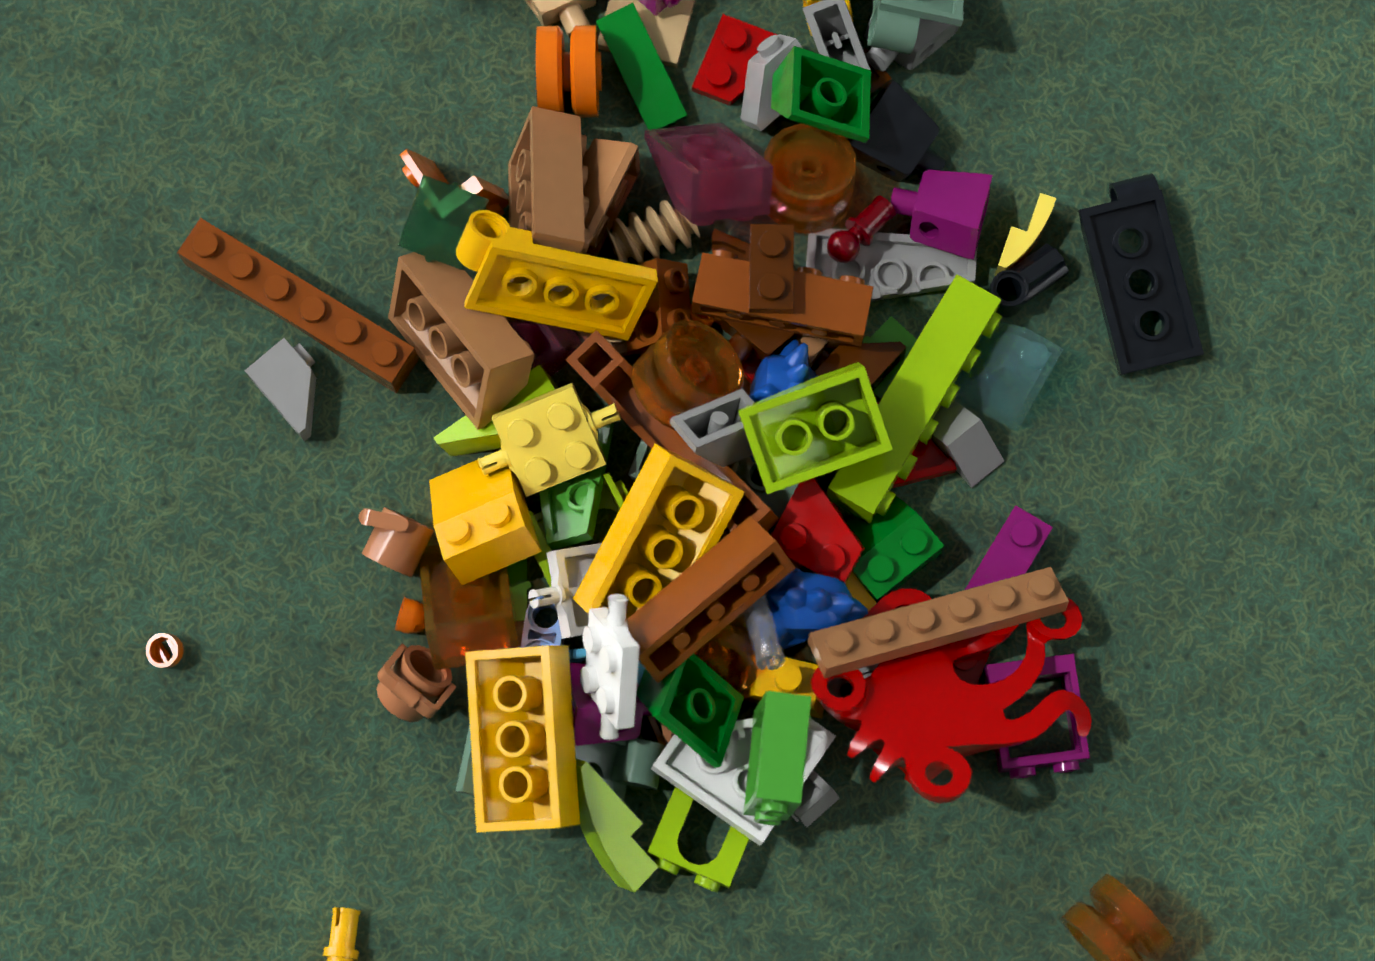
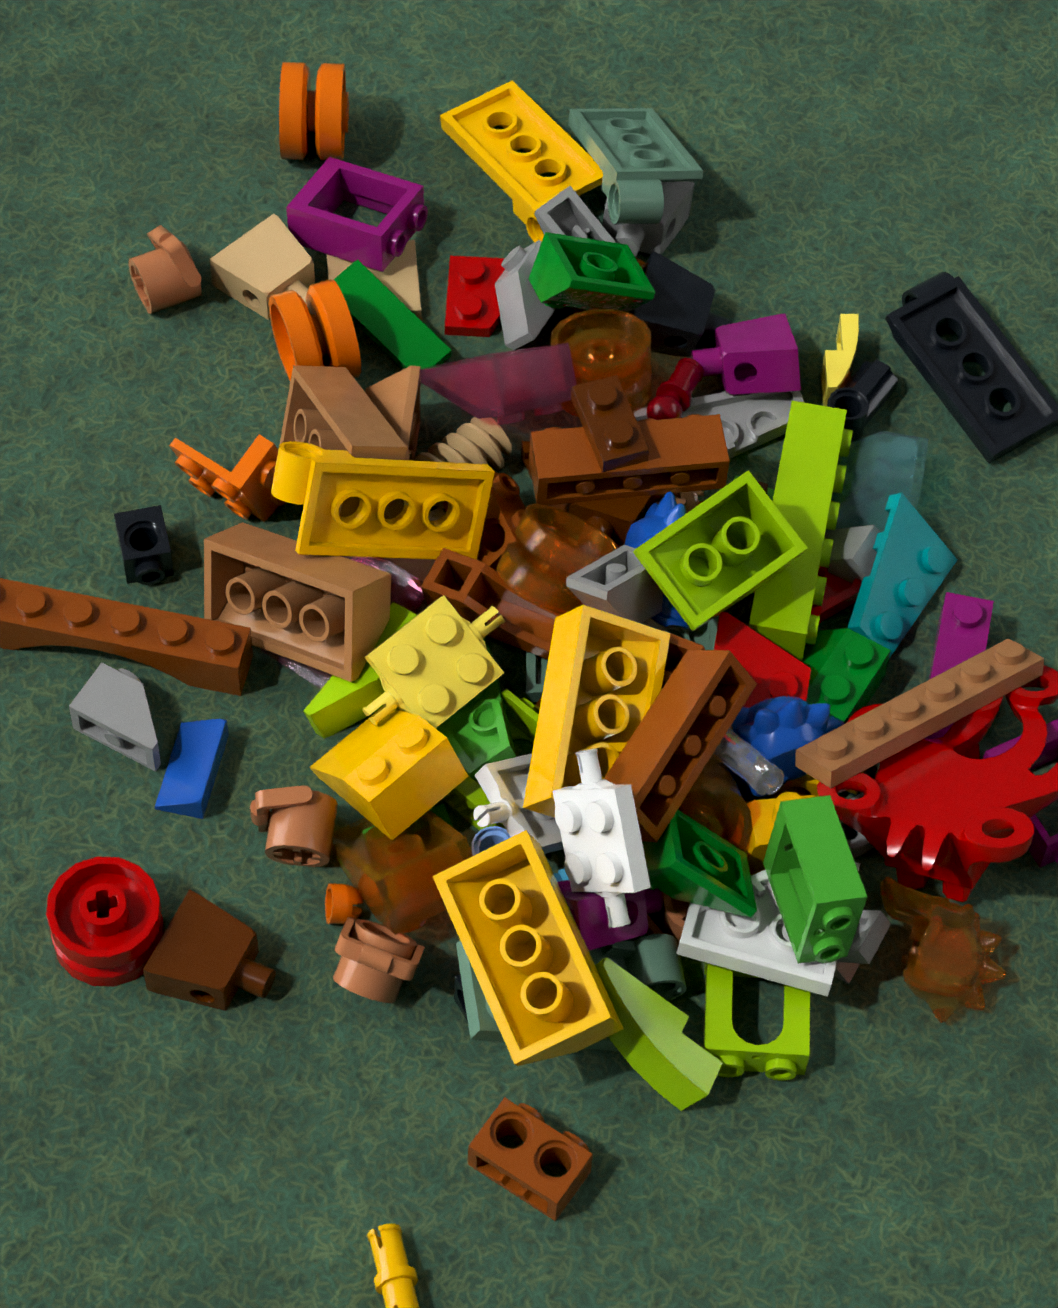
camera: 25 degrees left, 20 degrees down
(159, 656) = (67, 1032): orange hinge -> none
(193, 560) = (104, 920): none -> red wheel
(286, 629) = (206, 957): none -> reddish brown torso
(333, 450) = (193, 767): none -> blue slope
(353, 213) = (143, 530): none -> black brick
(439, 220) = (238, 491): clear green piece -> none
(470, 897) = (521, 1167): none -> dark orange brick
(881, 832) = (947, 949): none -> clear orange head
(992, 469) = (903, 578): none -> teal wing

